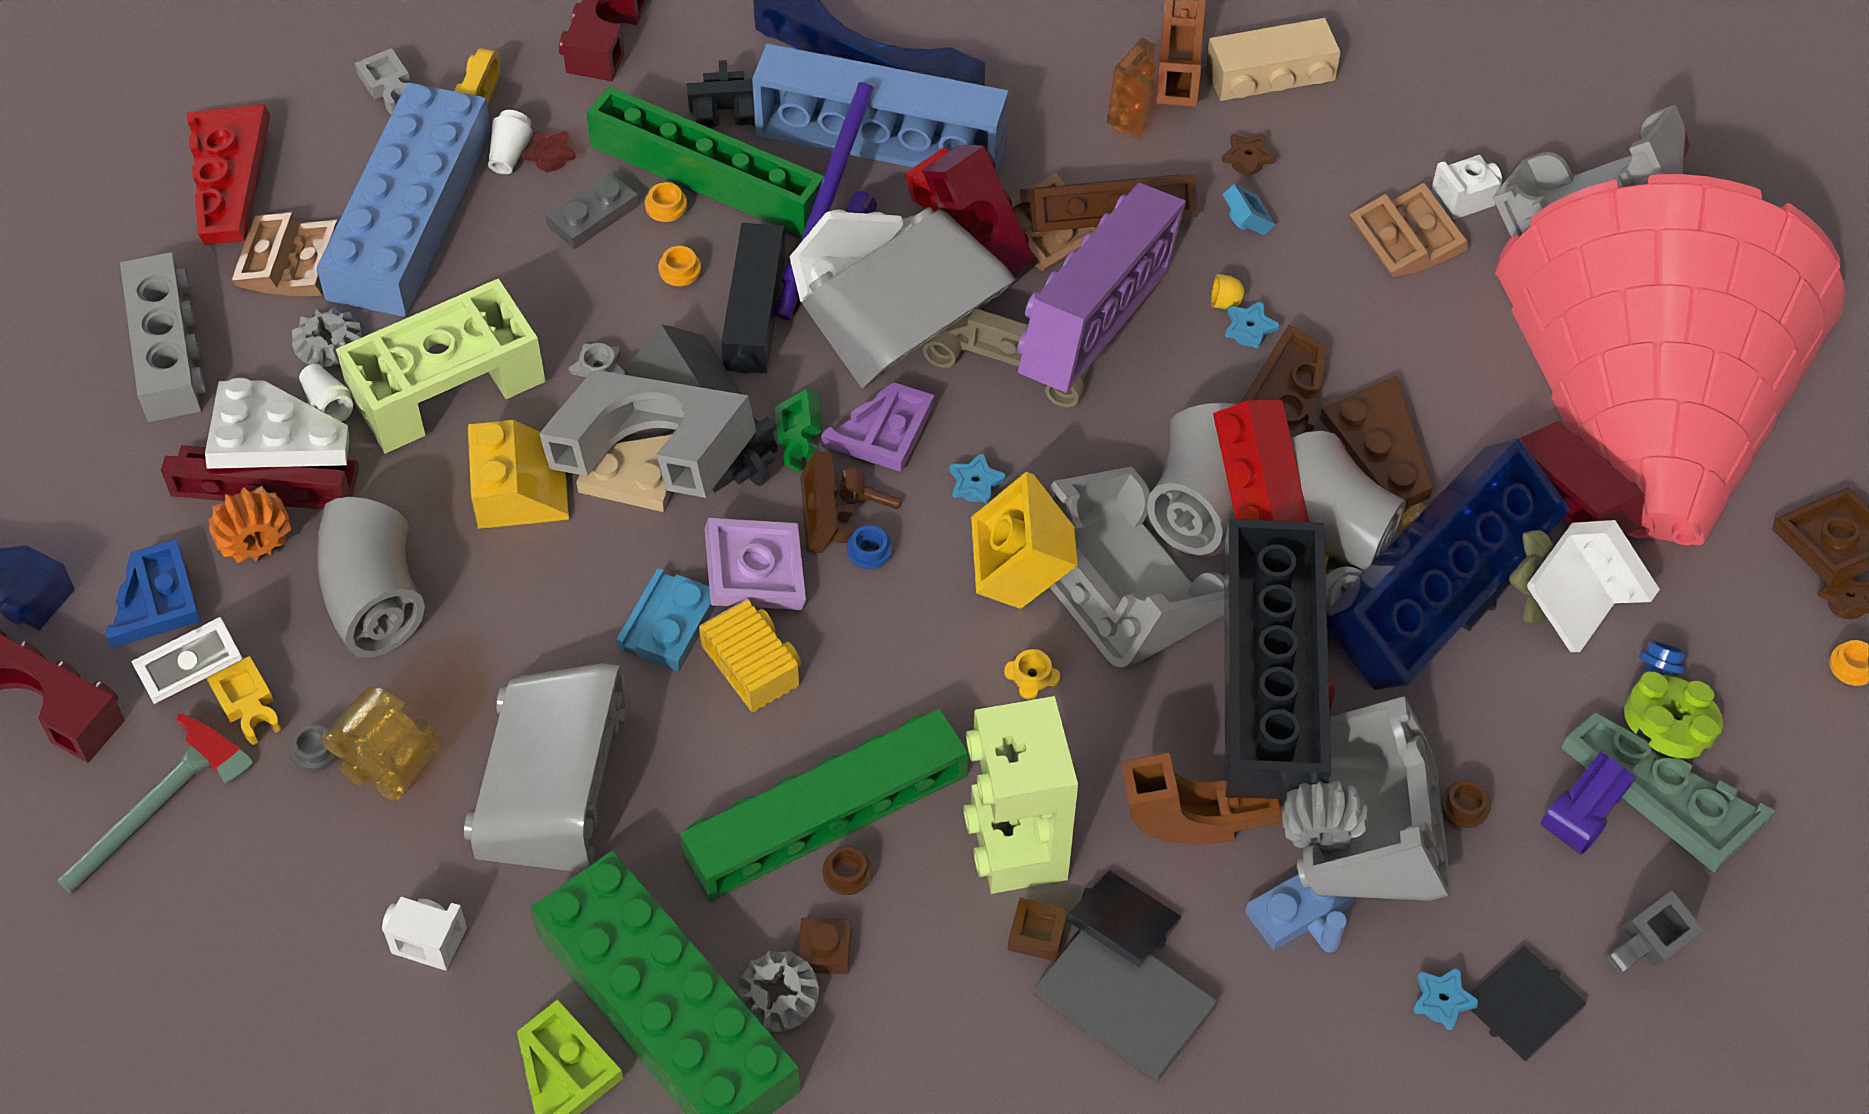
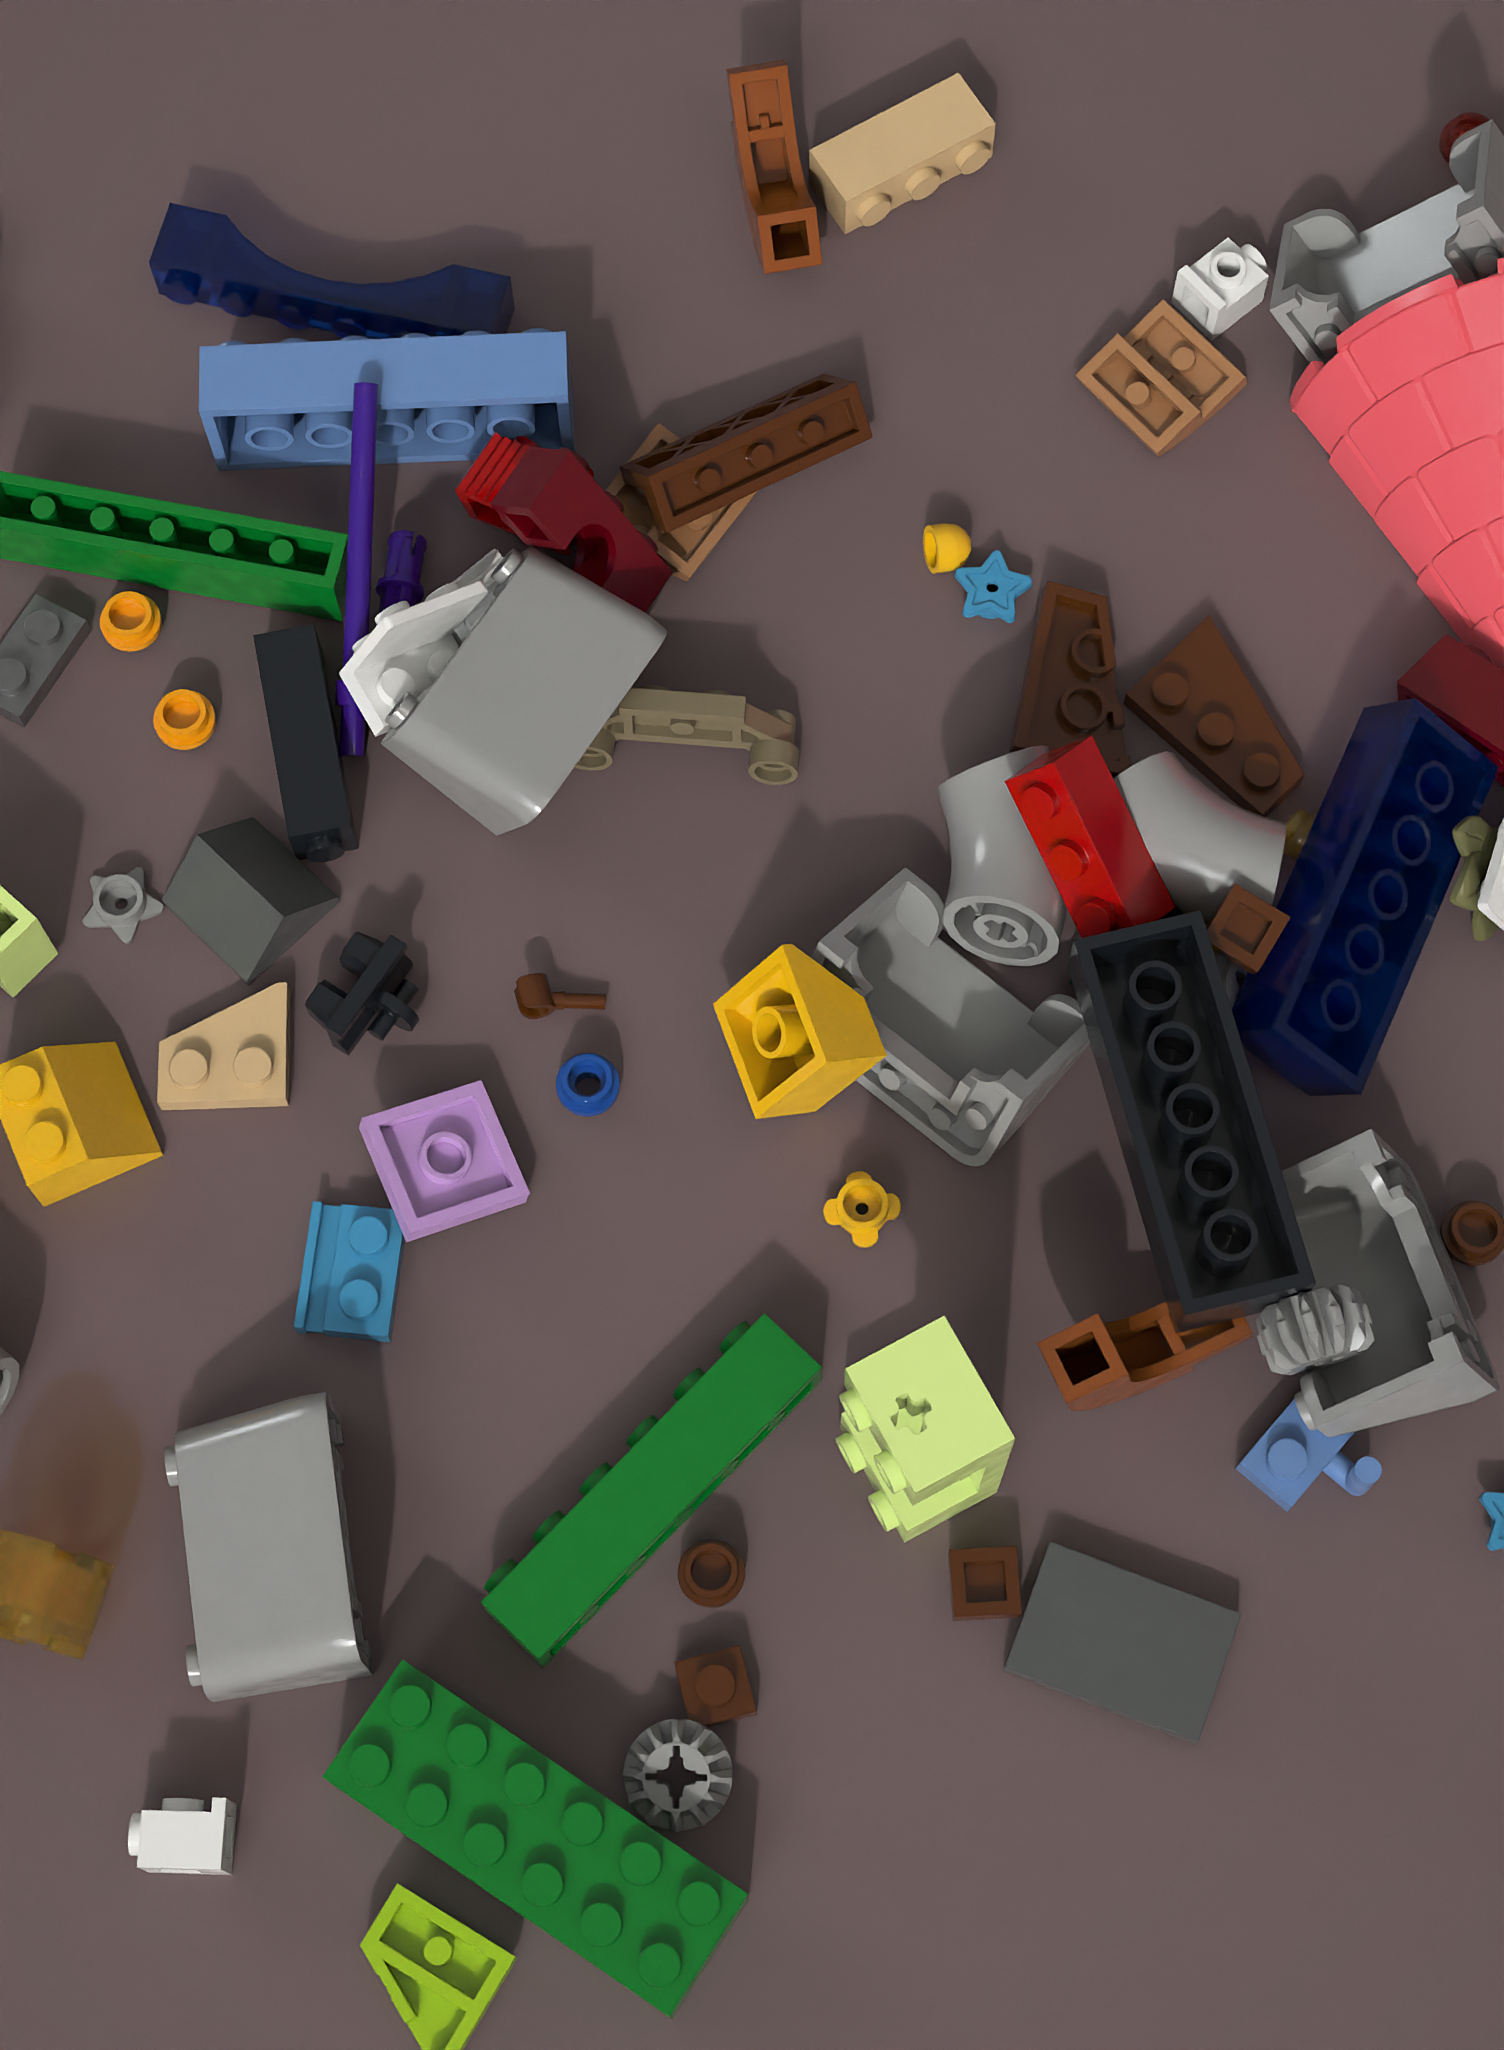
camera: 15 degrees left, 15 degrees up
(609, 406) = (174, 975): light grey arch -> none
(722, 91) = (133, 435): black hips -> none
(750, 654) = (482, 1296): yellow brick -> none
(796, 424) = (430, 927): green plate -> none
(821, 515) = (494, 1022): reddish brown plate -> none
(883, 428) = (549, 895): medium lavender wing -> none
(975, 491) = (697, 954): dark azure plate -> none
(1099, 287) = (786, 614): medium lavender brick -> none
(1123, 918) = (1089, 1533): black piece -> none
(1133, 90) = (728, 273): clear orange bracket -> none
(1246, 163) = (911, 330): reddish brown plate -> none
(1248, 210) = (938, 409): dark azure plate -> none
(1354, 552) = (1245, 928): none -> reddish brown plate

